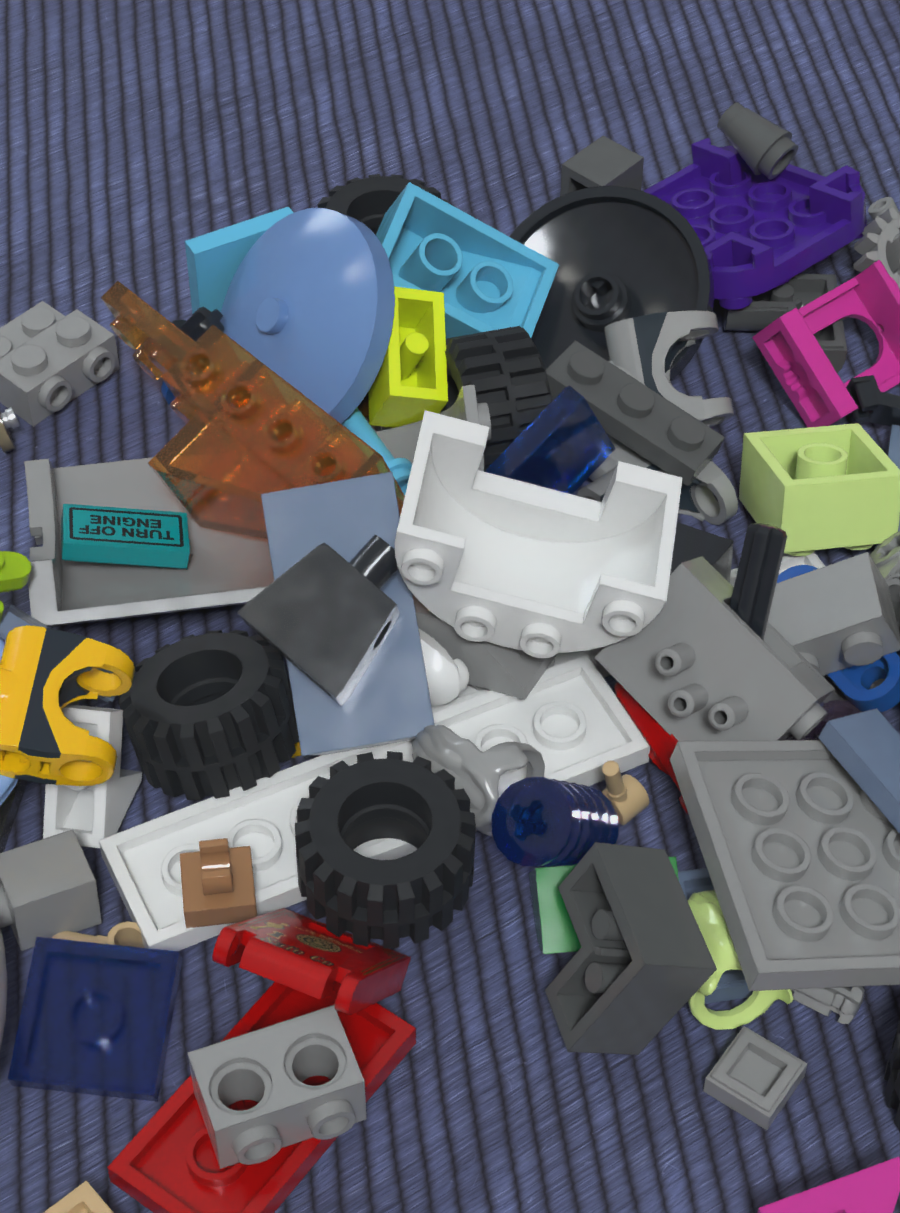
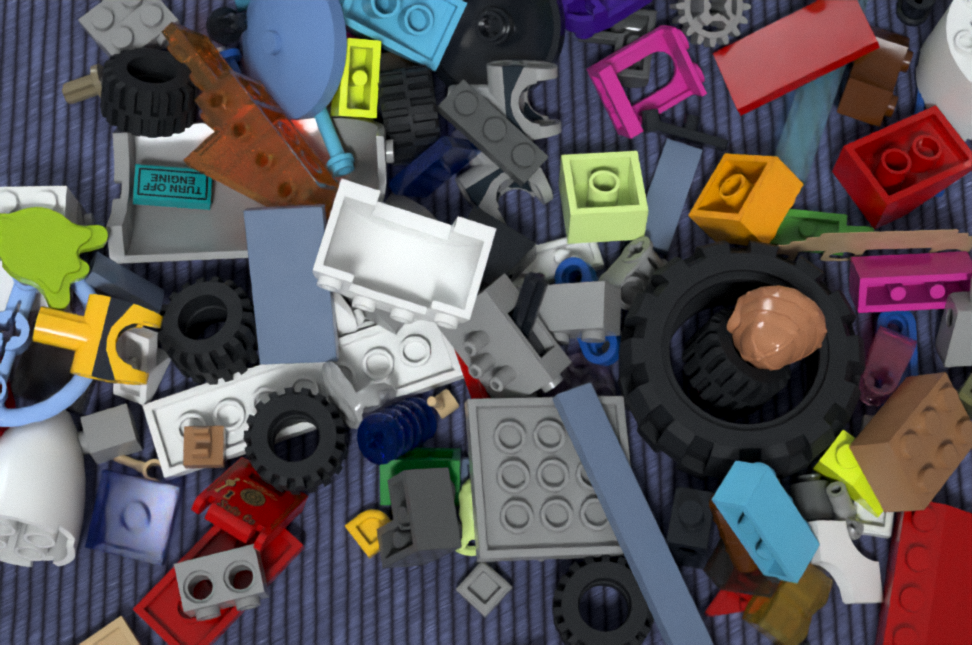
camera: 10 degrees right, 25 degrees up
(79, 411) = (148, 93): none -> black tyre
(329, 614) = (275, 296): black torso -> none
(523, 1006) = (364, 530): none -> yellow tile

